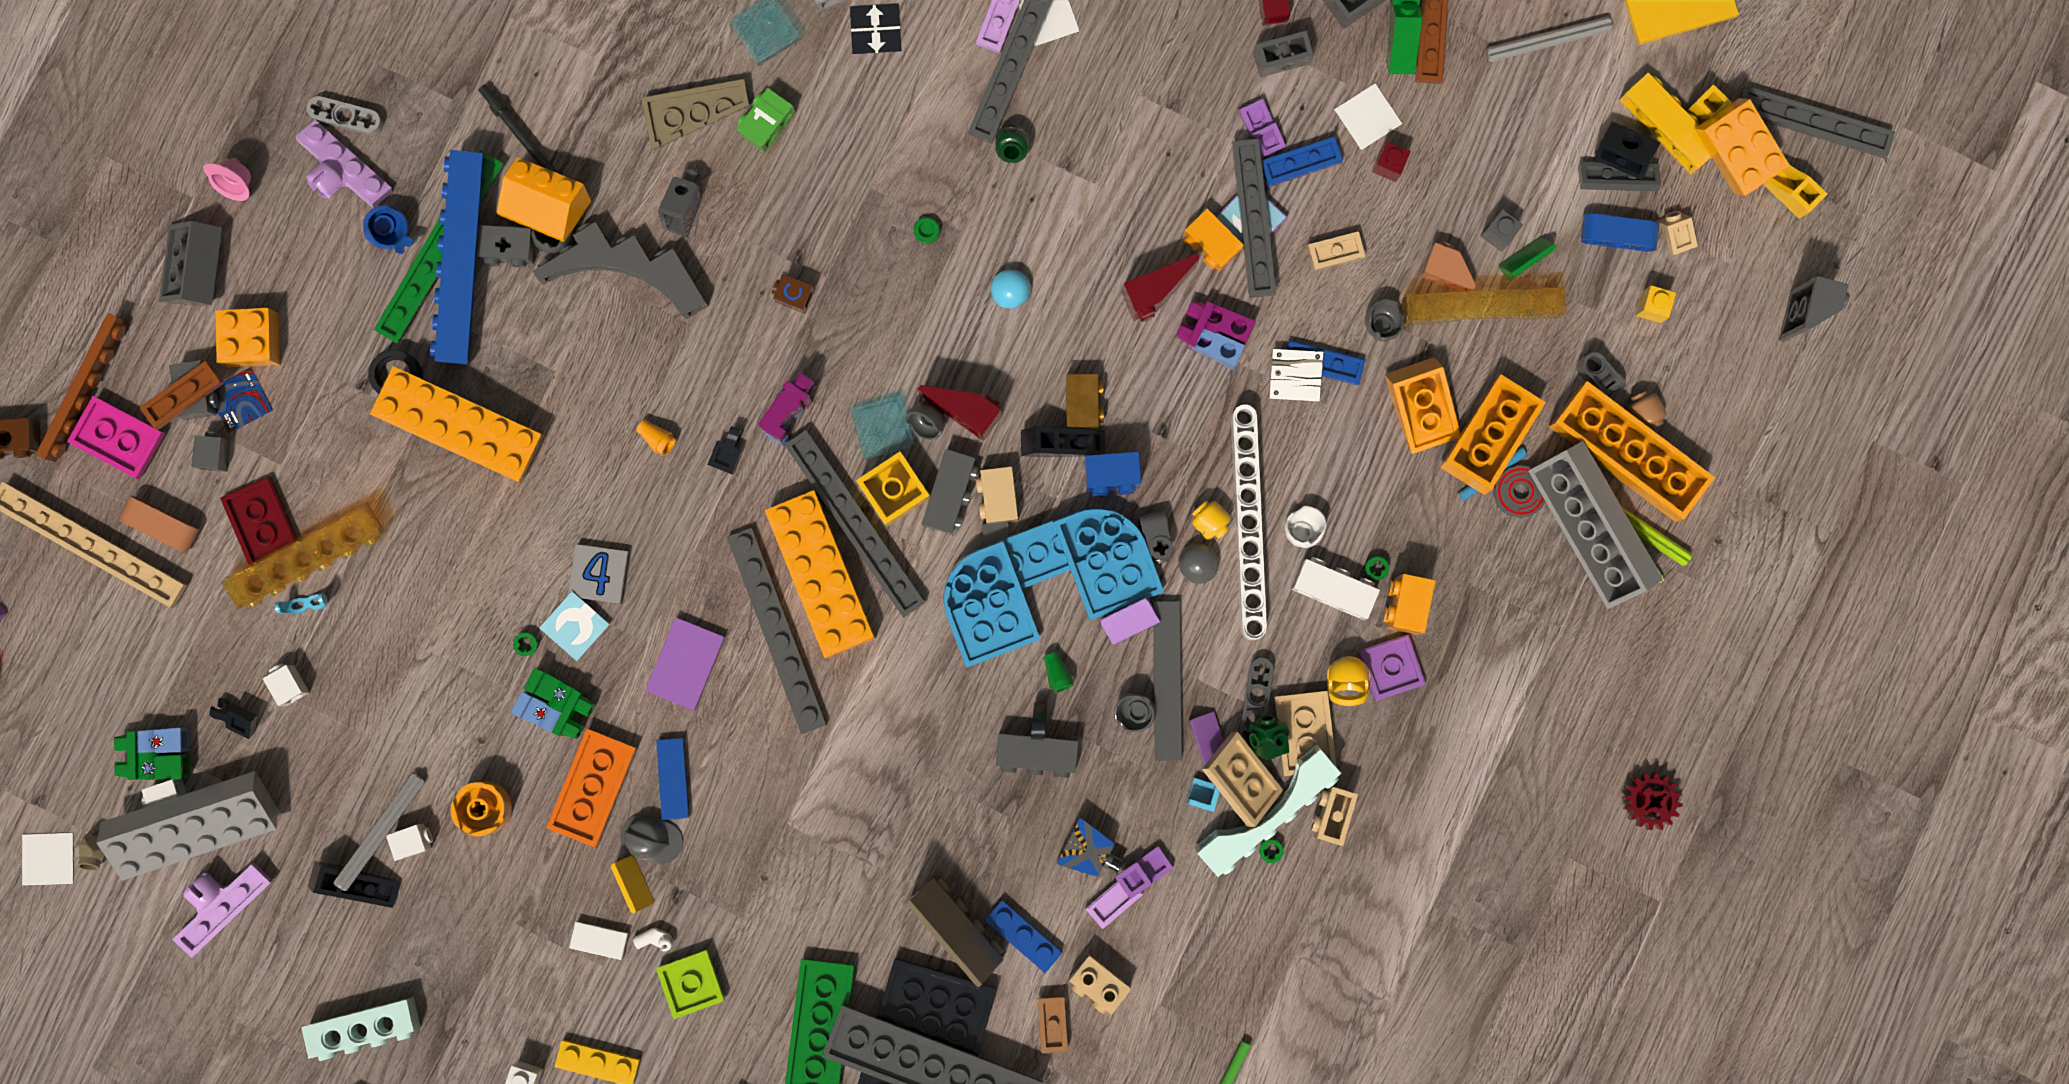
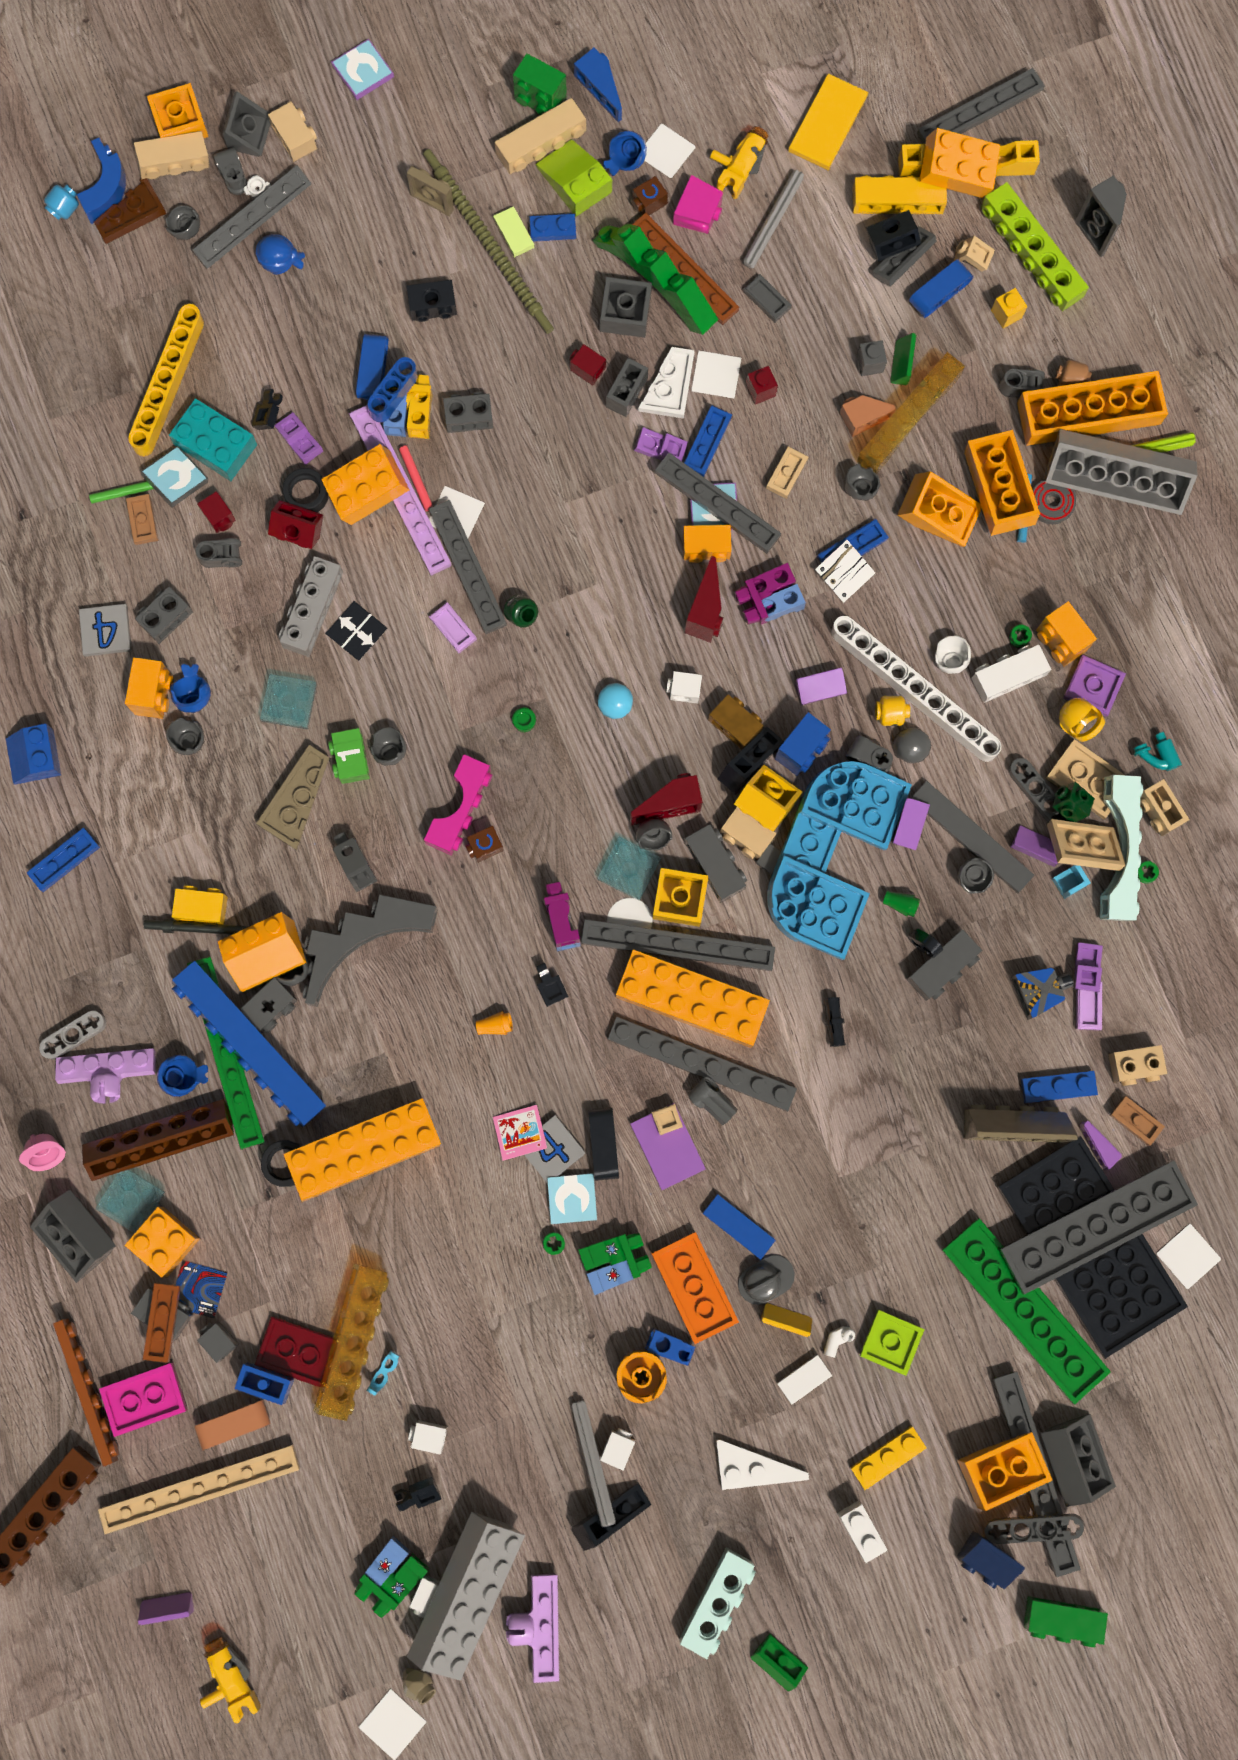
camera: 50 degrees left, 5 degrees down
(209, 519) = (264, 1383): none -> blue brick
(258, 281) = (130, 1200): none -> clear light blue plate
(320, 258) = (157, 1140): none -> reddish brown brick
(486, 956) = (746, 1469): none -> white wing
(526, 810) = (669, 1347): none -> blue leg
(534, 116) = (199, 905): none -> yellow brick
(588, 536) = (519, 1132): none -> sticker
(639, 611) = (603, 1144): none -> black beam
(704, 643) = (667, 1119): none -> tan tile
(753, 658) = (707, 1095): none -> dark grey piece
(775, 255) = (446, 832): none -> dark pink arch
(801, 143) = (388, 746): none -> dark grey hair
(846, 462) = (630, 913): none -> white sticker
(908, 706) = (834, 1022): none -> black pin
(949, 103) = (452, 628): none -> lavender tile
(1003, 1016) = (1102, 1148): none -> medium lavender slope
(1040, 485) = (768, 798): none -> yellow brick
(1073, 334) = (684, 687): none -> white brick
(1179, 444) = (821, 686): none -> slope
(1320, 89) = (670, 388): none -> white wing
(1390, 776) = (1166, 750): none -> teal plant
(1474, 97) = (767, 298): none -> dark grey tile
(1751, 214) = (1034, 235): none -> lime brick

